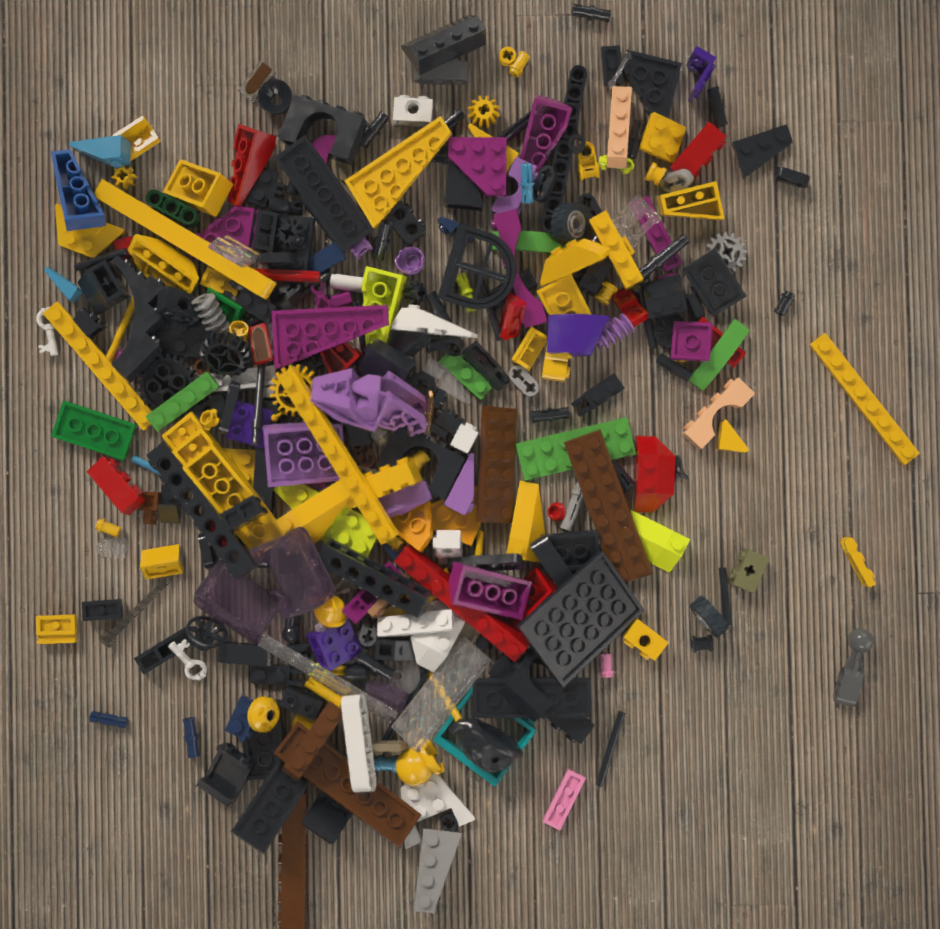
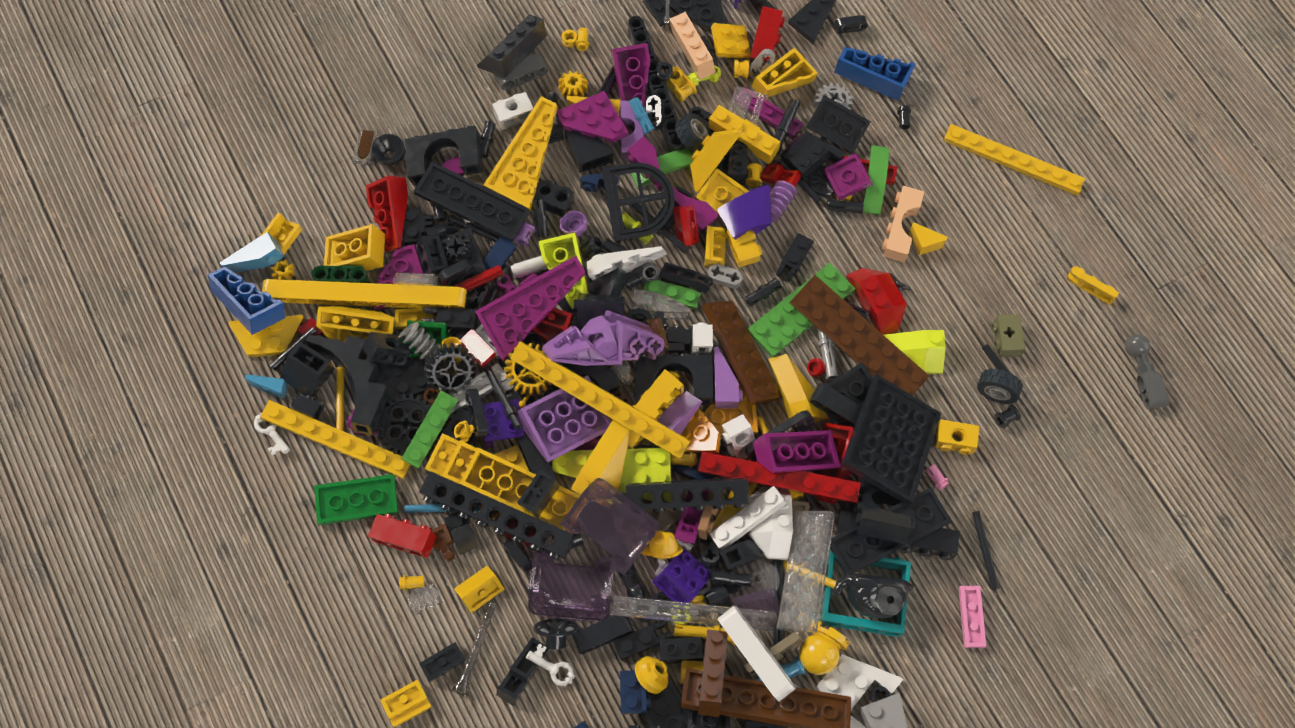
camera: 30 degrees left, 20 degrees down
(783, 243) = (875, 72): none -> blue wedge

